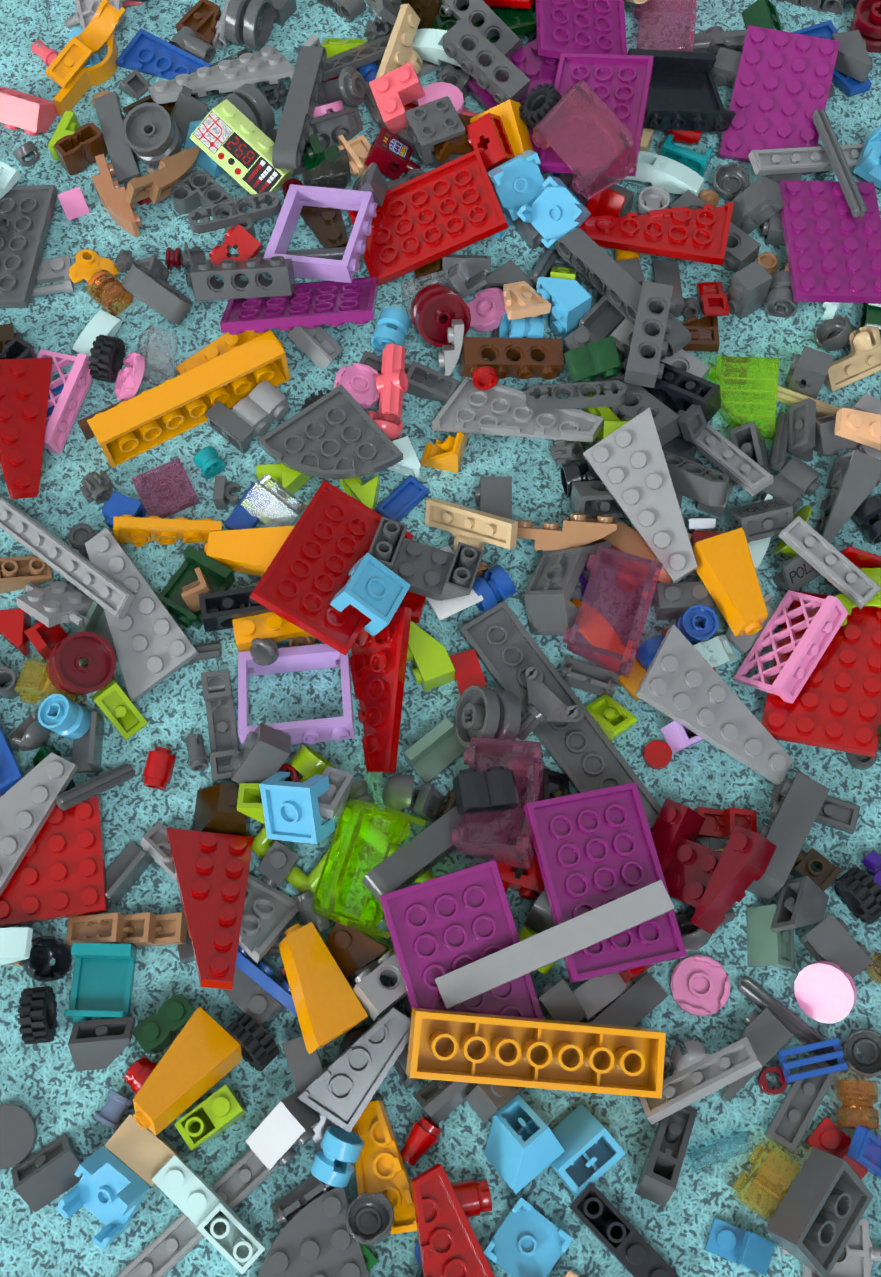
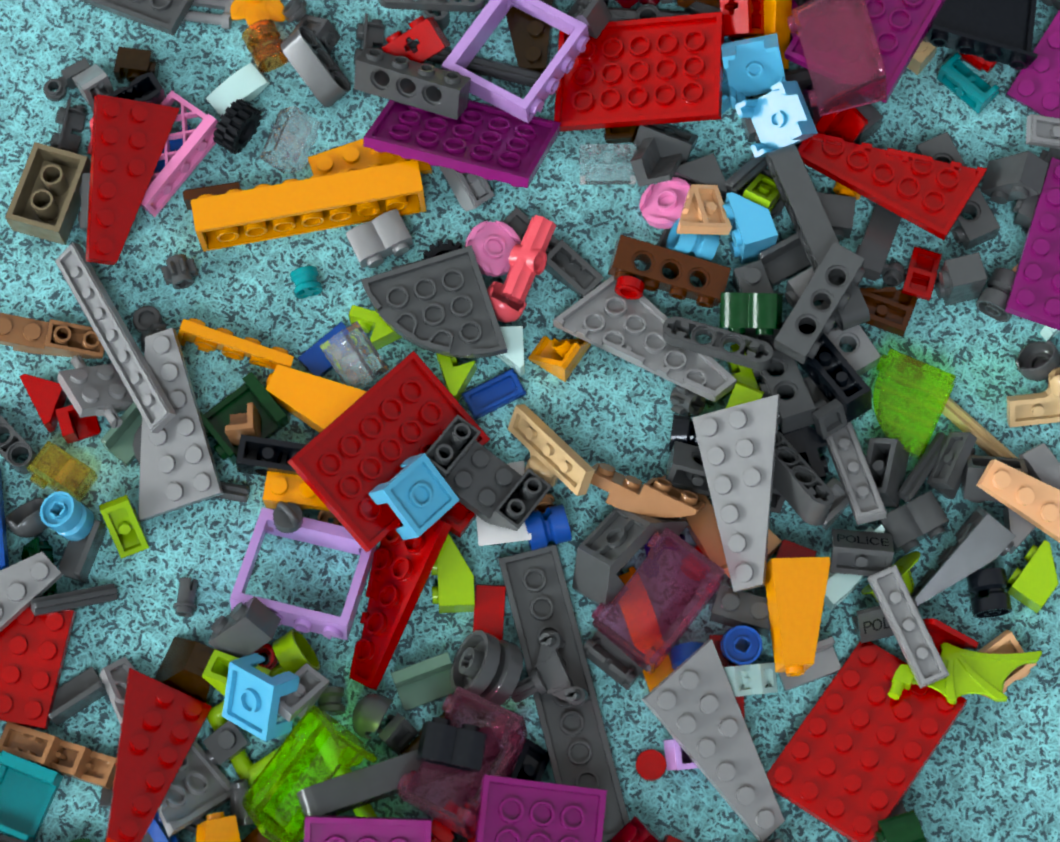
camera: 20 degrees right, 5 degrees up
(94, 672) = (117, 467): dark red wheel -> none
(121, 505) = (197, 305): blue brick -> none
(130, 378) = (254, 156): bright pink tile -> none
(159, 768) = (143, 601): red brick -> none
(165, 490) = (249, 298): clear pink plate -> none
(173, 258) = (348, 25): dark red bush -> none
(221, 722) = (221, 575): dark grey slope -> none
(222, 493) = (307, 321): dark grey tile -> none
(230, 426) = (341, 248): dark grey slope -> none
(391, 328) = (552, 194): medium azure wheel -> none
(433, 311) = (608, 197): dark red wheel -> none
(451, 353) = (607, 240): light grey slope -> none
(495, 495) = (589, 430): dark grey brick -> none
(611, 716) = (615, 708): lime slope -> none
(652, 199) = (900, 134): light grey wheel -> none
(666, 174) = (932, 103): light aqua slope -> none
(699, 524) = (797, 530): tile -> none
(709, 196) = (968, 147): medium nougat plate -> none
(731, 177) = (1008, 129): dark grey hair -> none
(768, 262) = (1001, 249): medium nougat plate -> none
(807, 650) = (842, 713): bright pink fence -> none
(808, 371) = (986, 400): dark grey brick -> none

